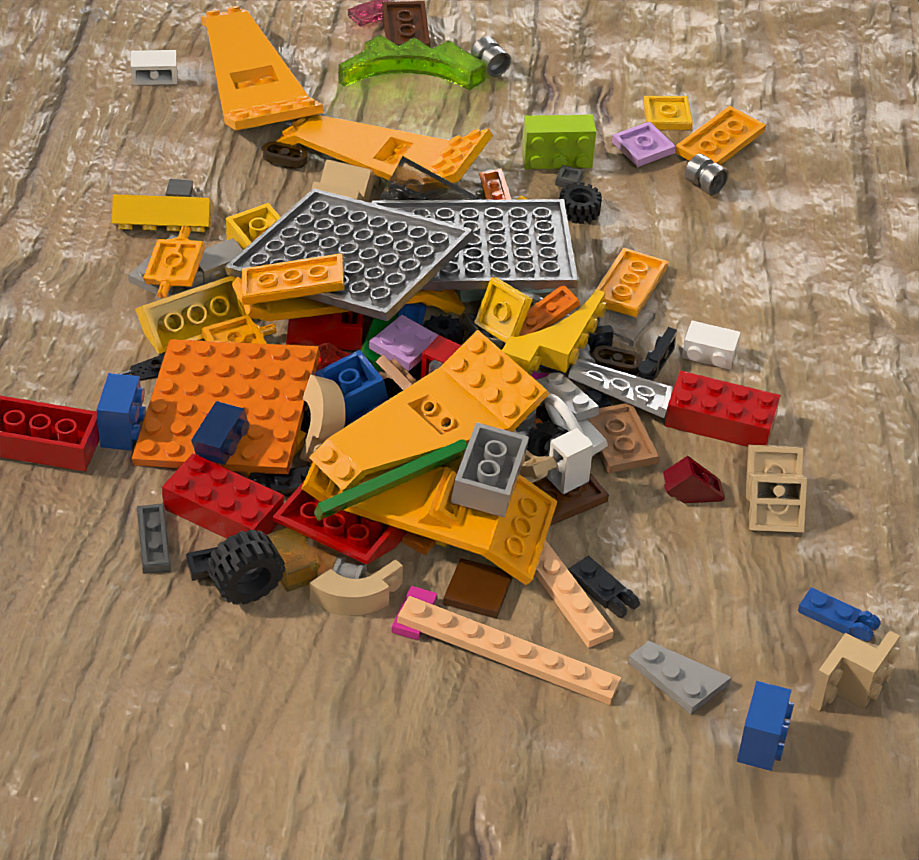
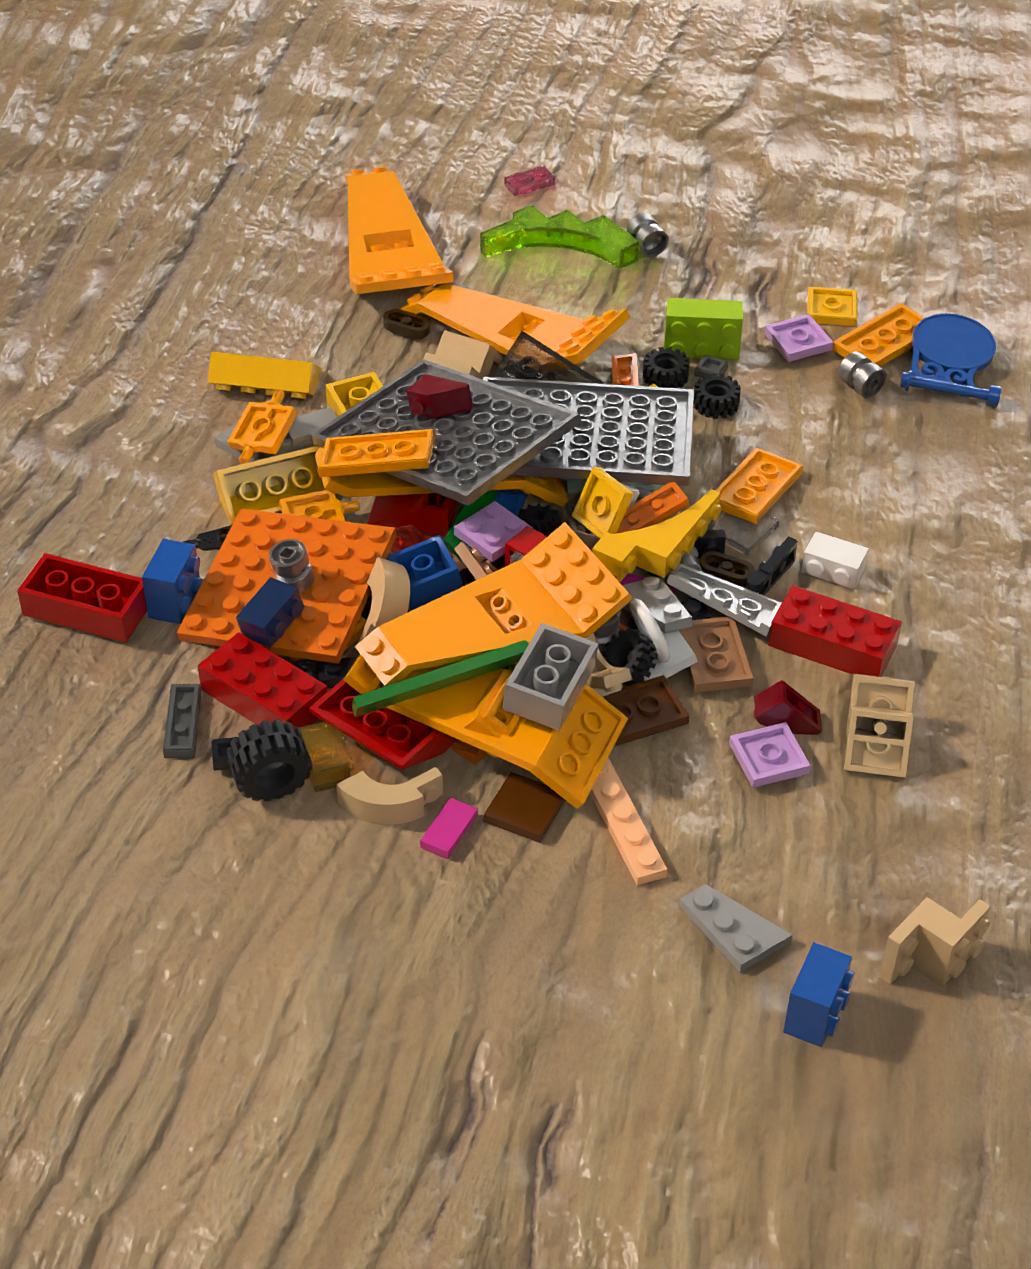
camera: 10 degrees right, 0 degrees up
(154, 67) = (287, 224): white brick -> none
(179, 188) = (288, 351): dark grey tile -> none
(233, 386) = (292, 564): none -> flat silver wheel
(340, 223) = (438, 397): none -> dark red slope
(349, 570) = (385, 775): light grey bush -> none
(405, 21) = (562, 192): reddish brown plate -> none
(509, 650) = (546, 880): light nougat plate -> none
(530, 180) = (666, 368): none -> black tyre
(573, 460) = (650, 673): white brick -> none
(603, 586) = (665, 818): black hinge -> none
(684, 522) = (769, 754): none -> lavender plate
(782, 144) = (955, 347): none -> blue piece
(839, 615) = (930, 875): blue hinge -> none

